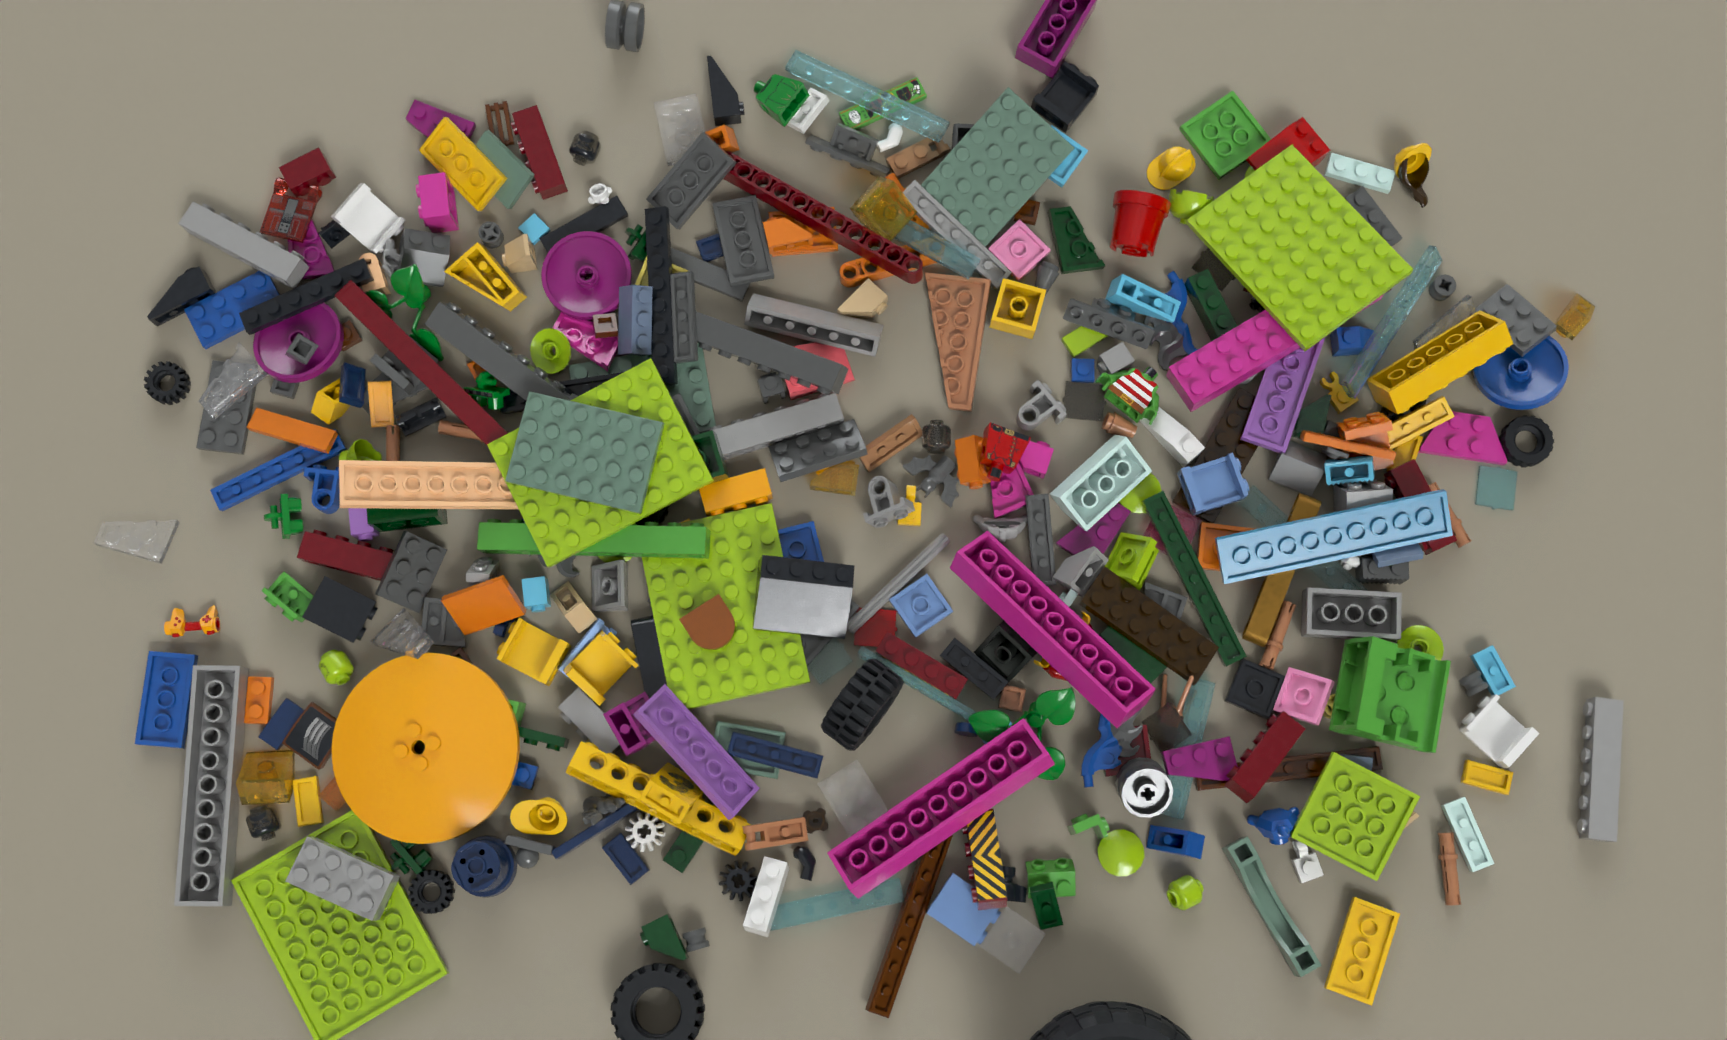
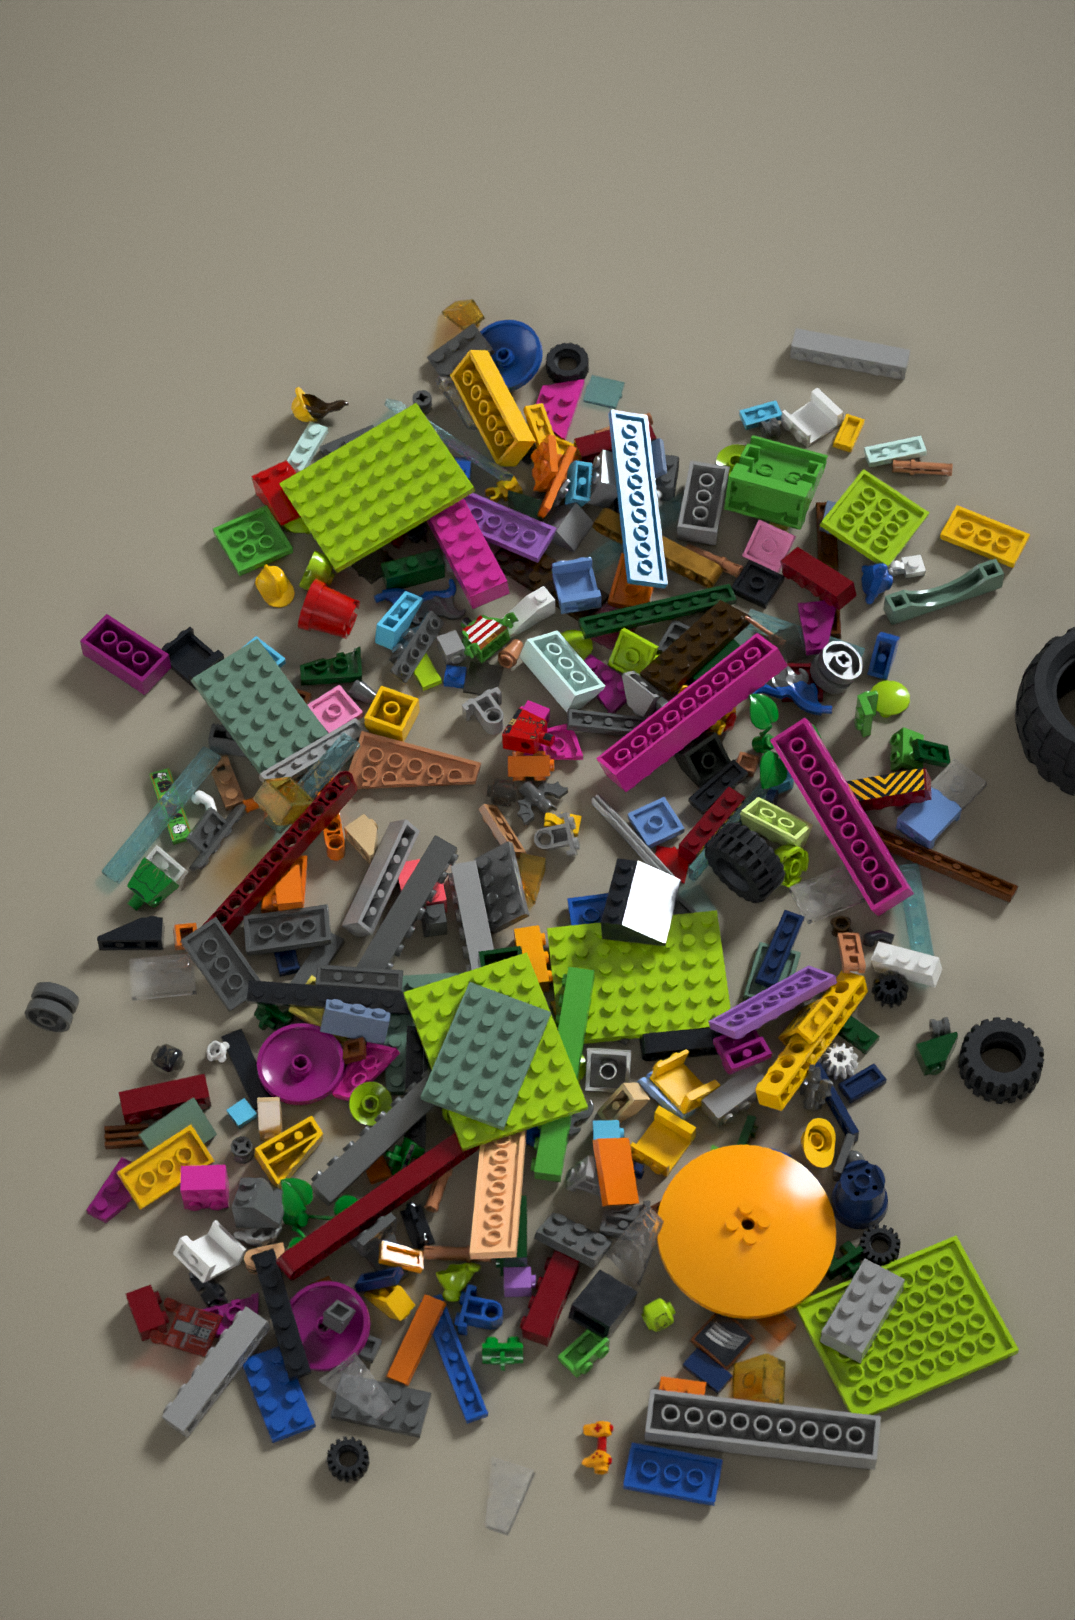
camera: 80 degrees left, 20 degrees down
(184, 292) = (256, 1436): black slope -> none
(263, 822) = (802, 1389): head -> none
(307, 801) = (792, 1352): yellow tile -> none
(710, 624) = (656, 982): dark orange tile -> none
(881, 753) = (794, 861): none -> lime cylinder
(926, 736) = (775, 823): none -> yellowish green slope
(1001, 527) = (593, 748): light grey piece -> none
(1185, 892) = (927, 653): lime head -> none

